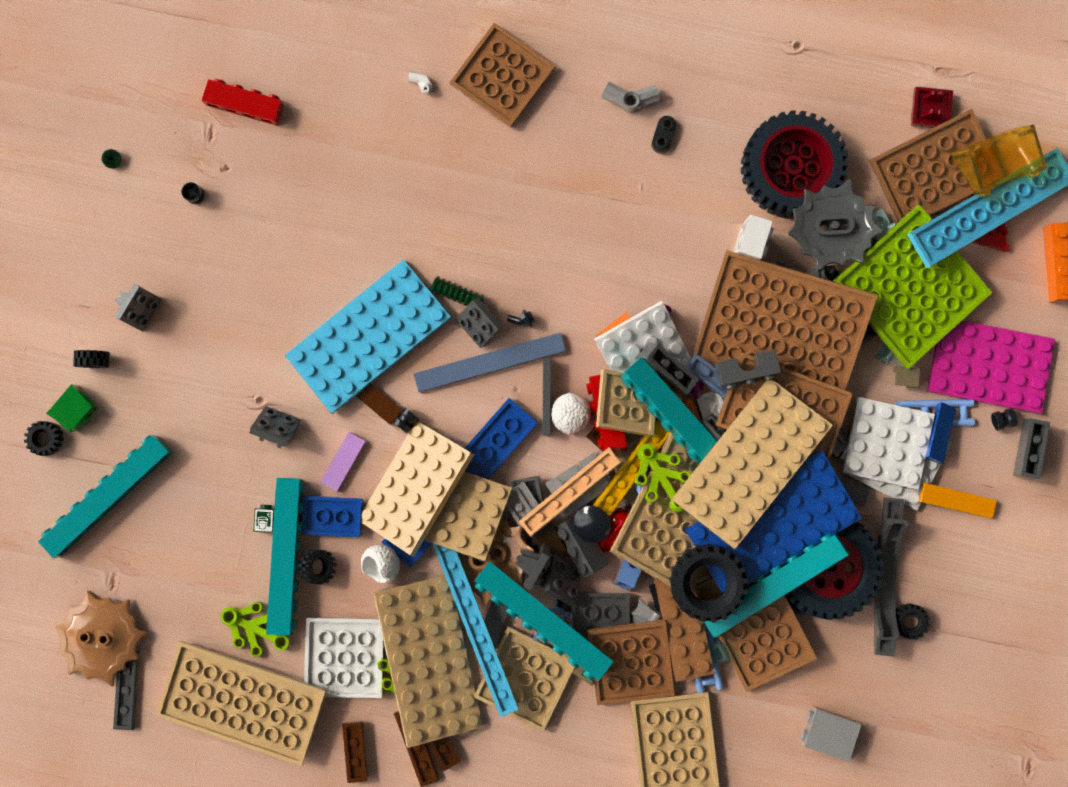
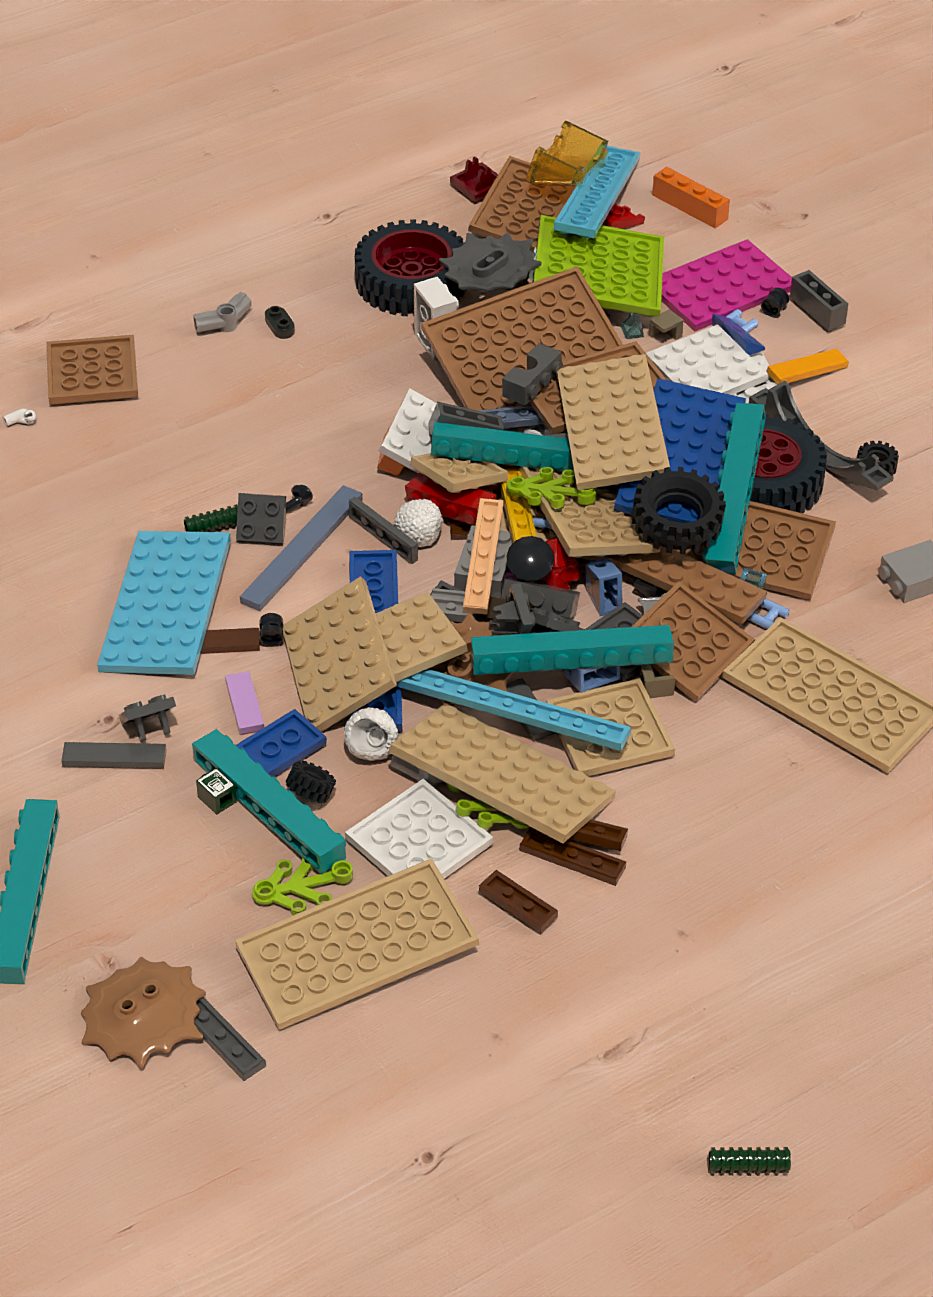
camera: 45 degrees left, 40 degrees down
(237, 435) = (113, 755): none -> dark grey tile

